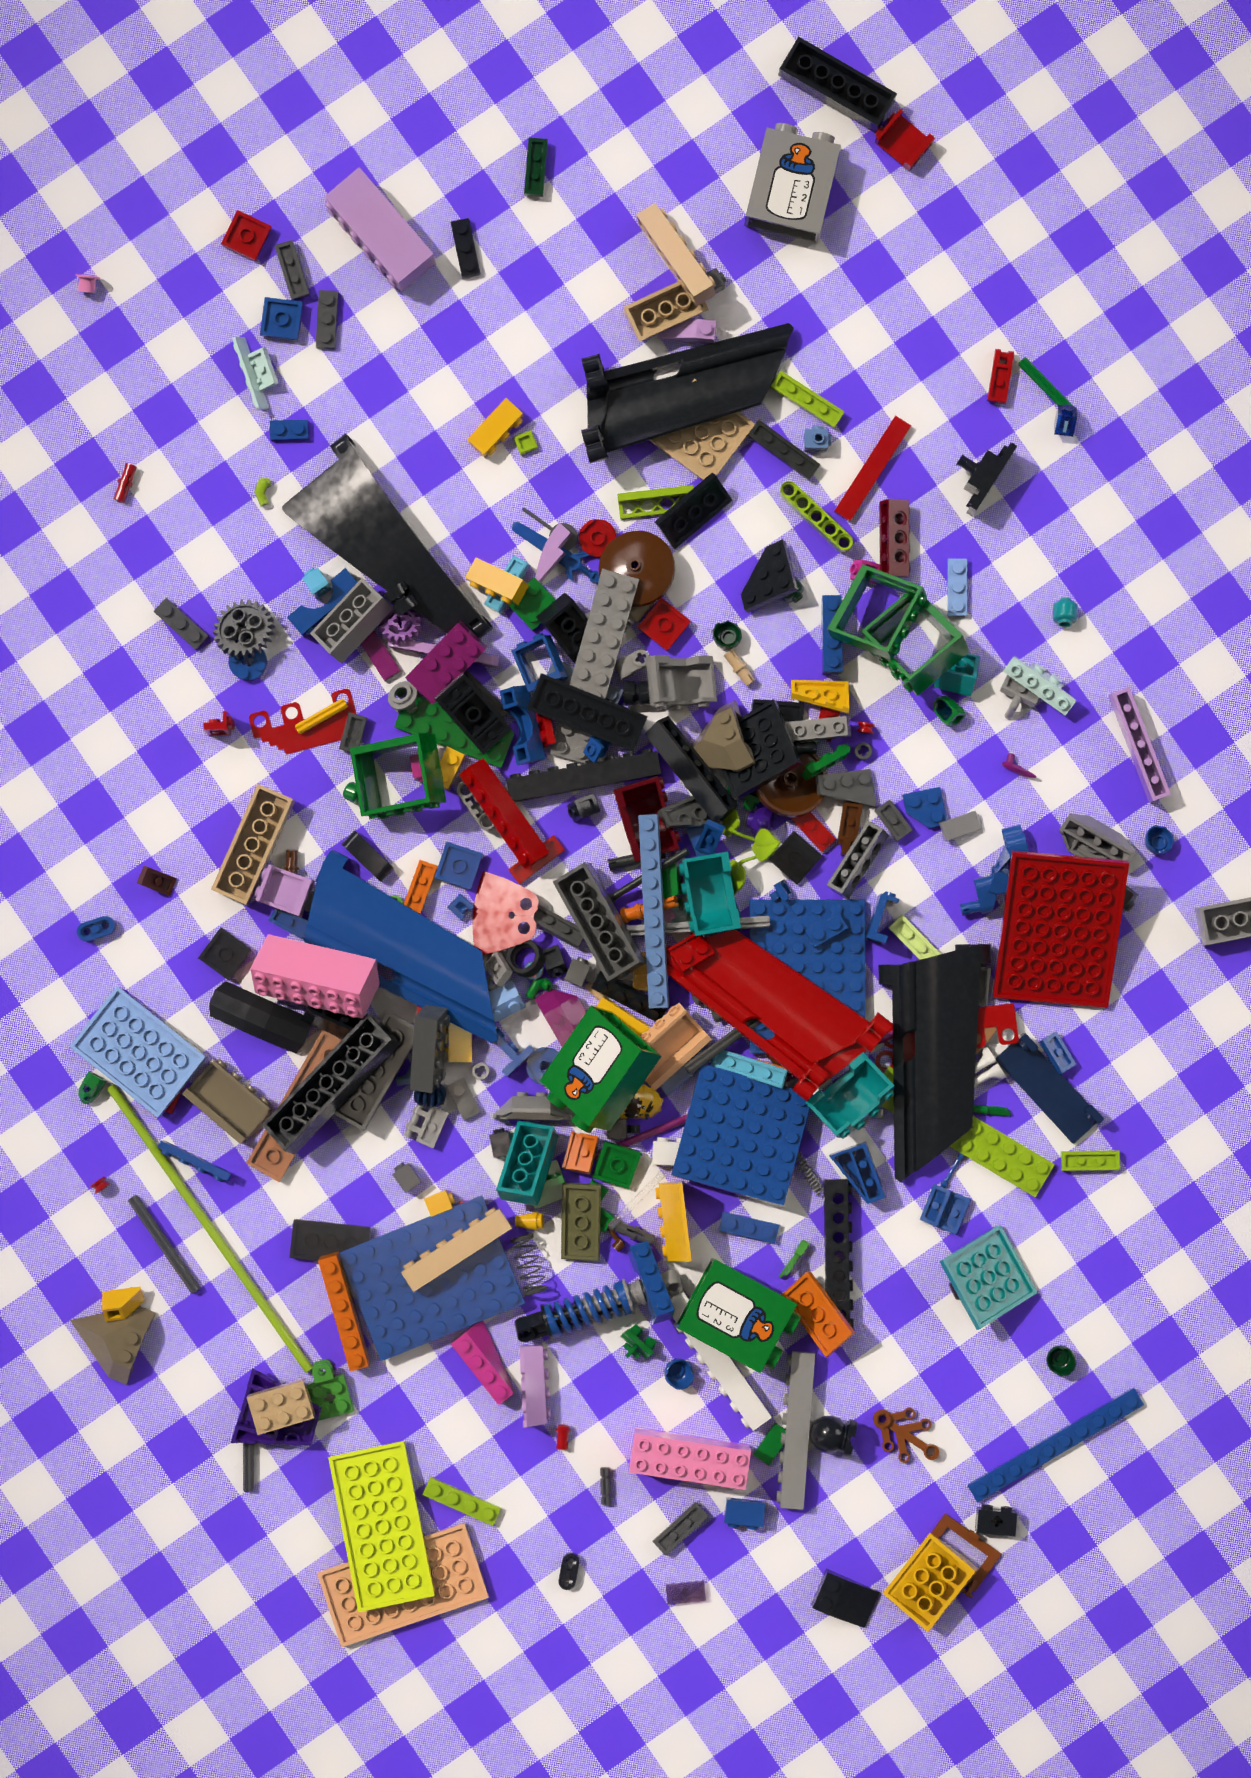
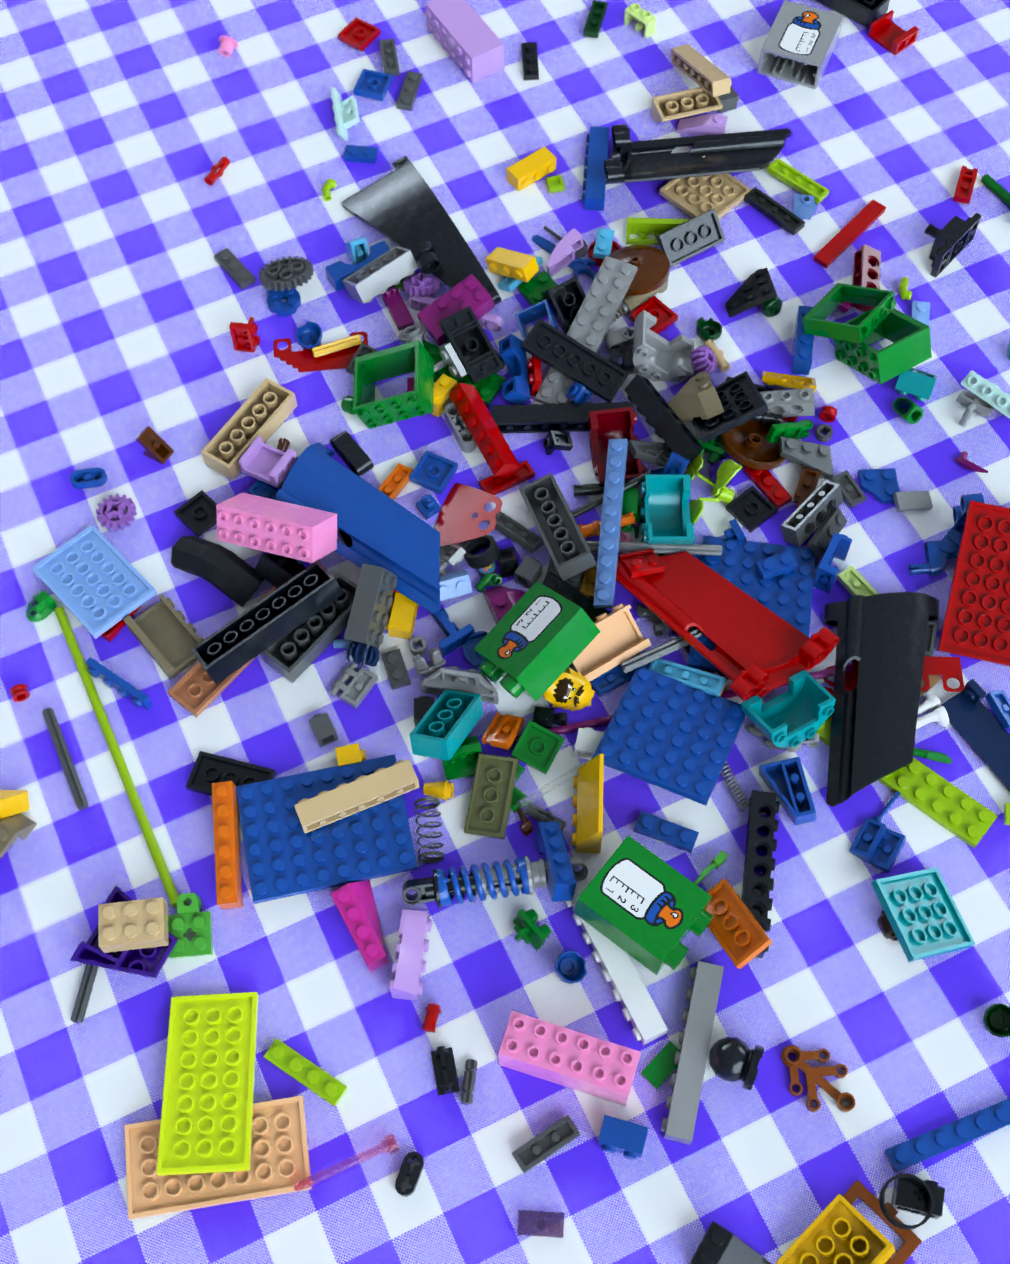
camera: 10 degrees right, 25 degrees down
(132, 974) = (116, 512): none -> medium lavender gear
(288, 711) = (309, 335): none -> blue hair
(449, 729) = (451, 359): none -> light grey plate
(490, 1094) = (429, 668): none -> light grey piece
(545, 1552) = (387, 1145): none -> piece
(571, 415) = (594, 173): none -> blue brick
(583, 1480) = (445, 1070): none -> black hinge
(592, 163) = (644, 19): none -> yellowish green window
(595, 530) = (603, 243): none -> medium azure plate
(725, 682) = (703, 360): none -> medium lavender gear
(811, 508) = (798, 257): lime beam -> none
(875, 879) = (820, 540): none -> dark grey plate
(936, 542) = (904, 294): none -> lime arm
(997, 1547) = (923, 1185): none -> black tyre

